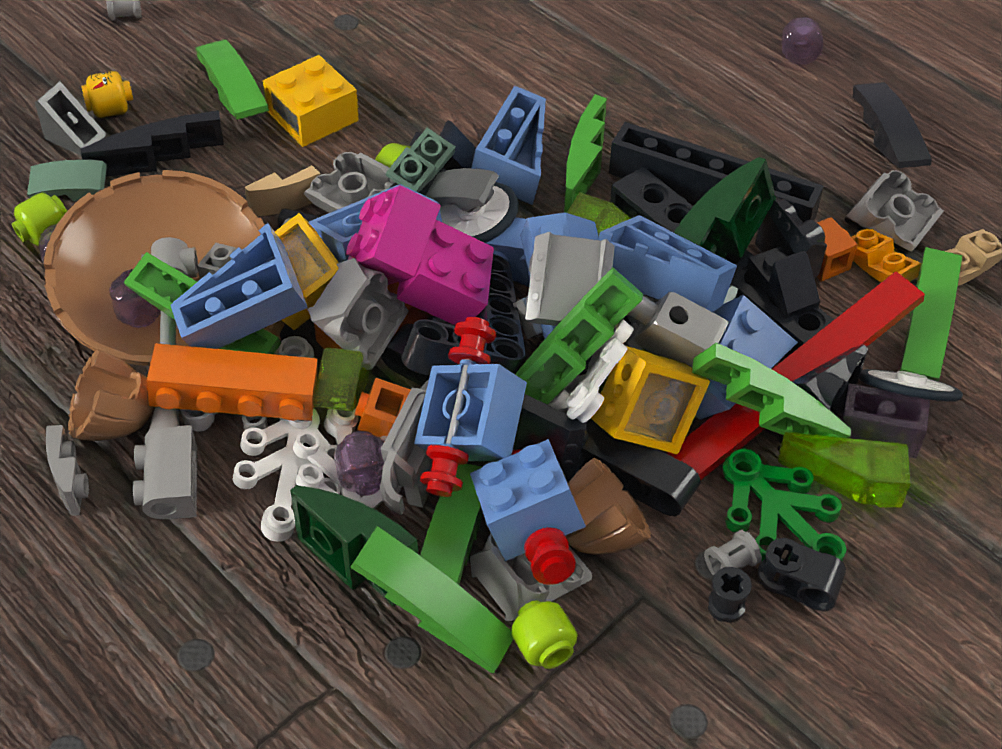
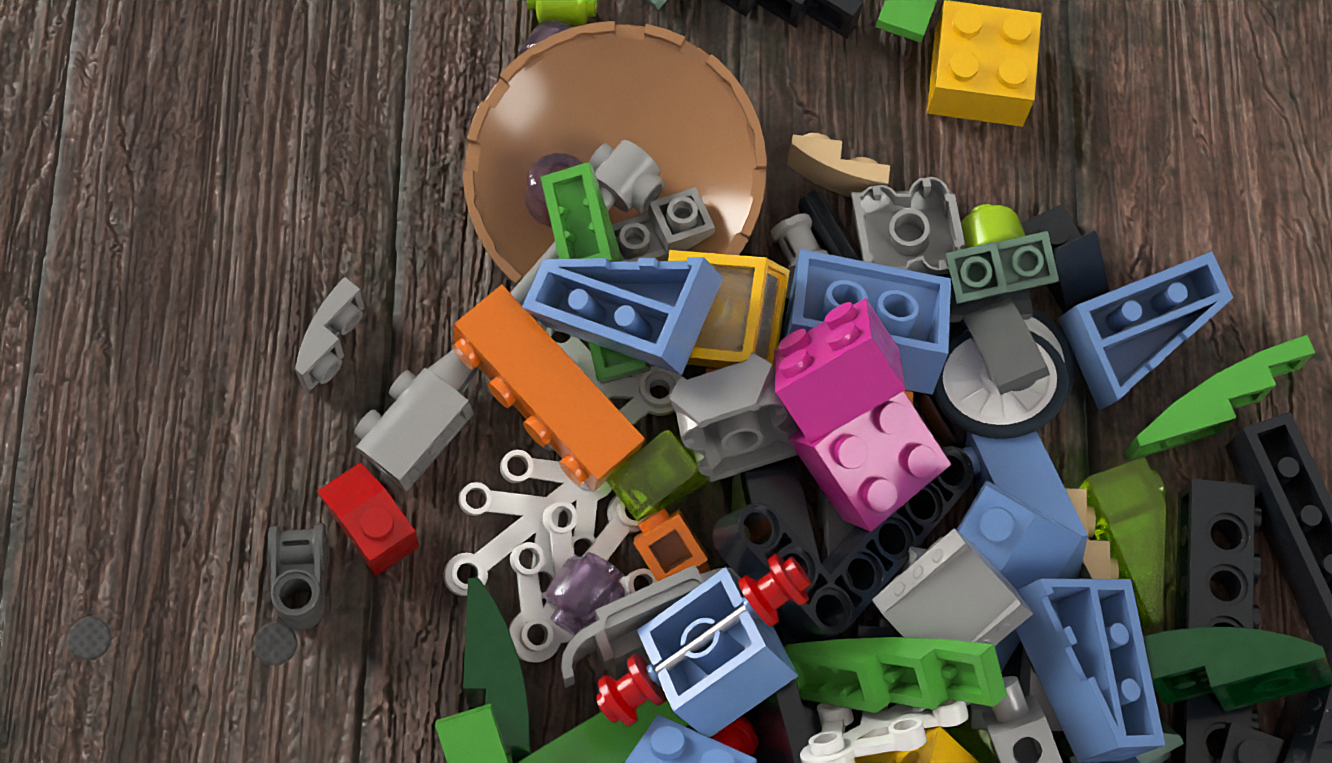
camera: 40 degrees right, 20 degrees up
(108, 400) = (425, 294): medium nougat hair -> none
(171, 594) = (298, 564): none -> dark grey piece
(190, 537) = (369, 518): none -> red slope

